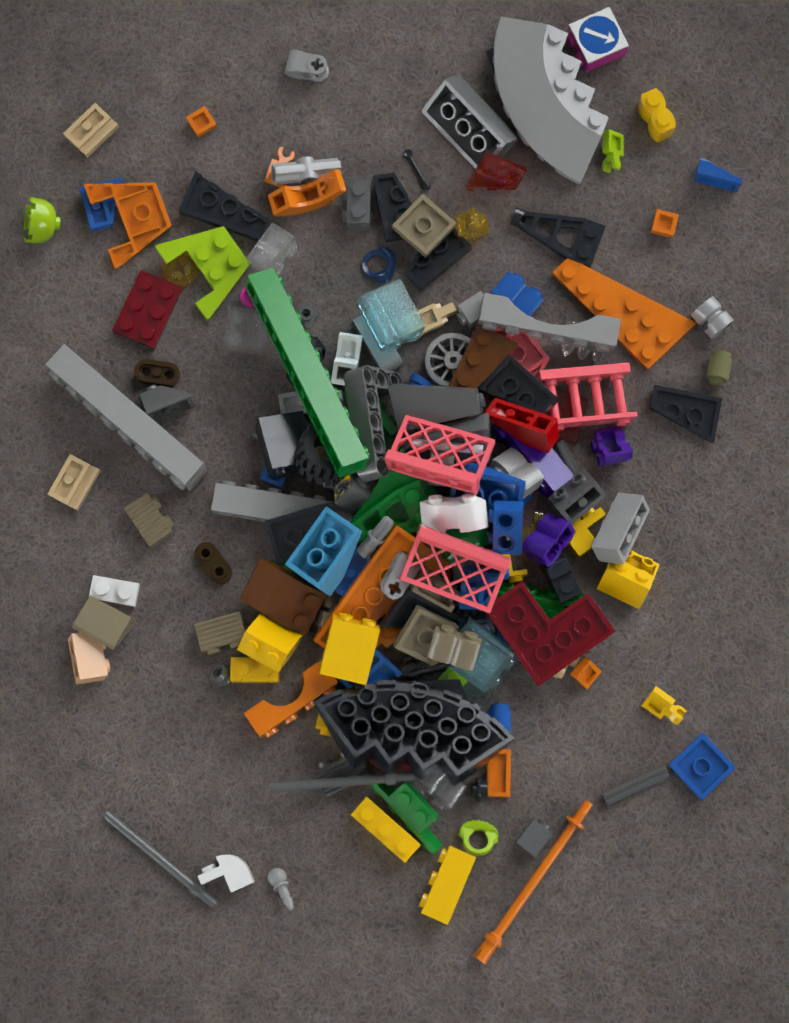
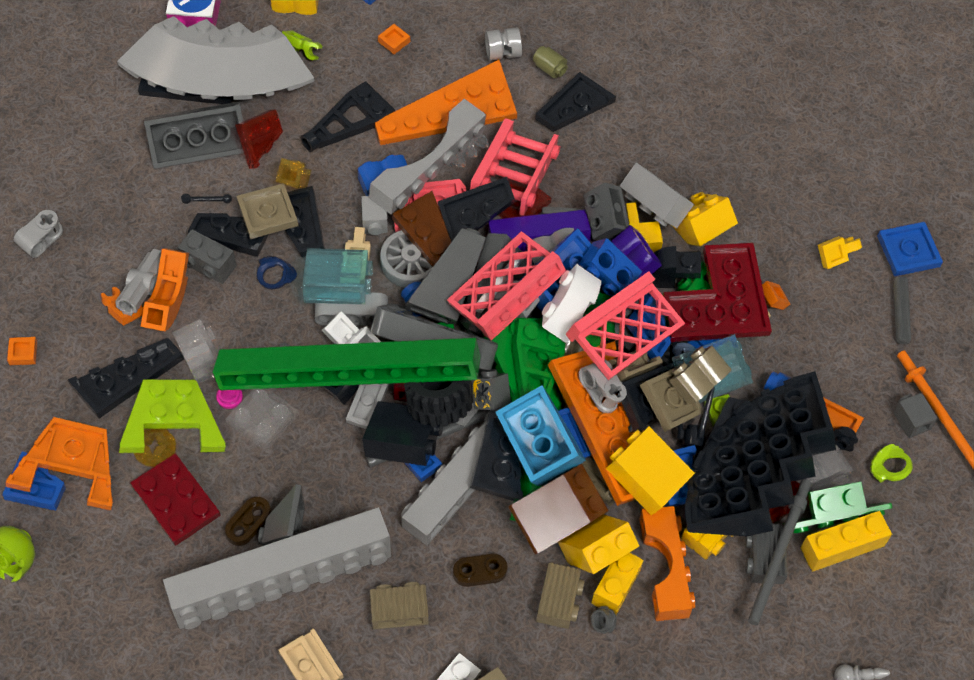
camera: 65 degrees left, 20 degrees down
(375, 537) = (551, 383): light grey axle -> none
(447, 884) = (928, 513): yellow brick -> none
(524, 424) = (519, 213): red slope -> none
(611, 446) = (571, 173): dark purple cylinder -> none

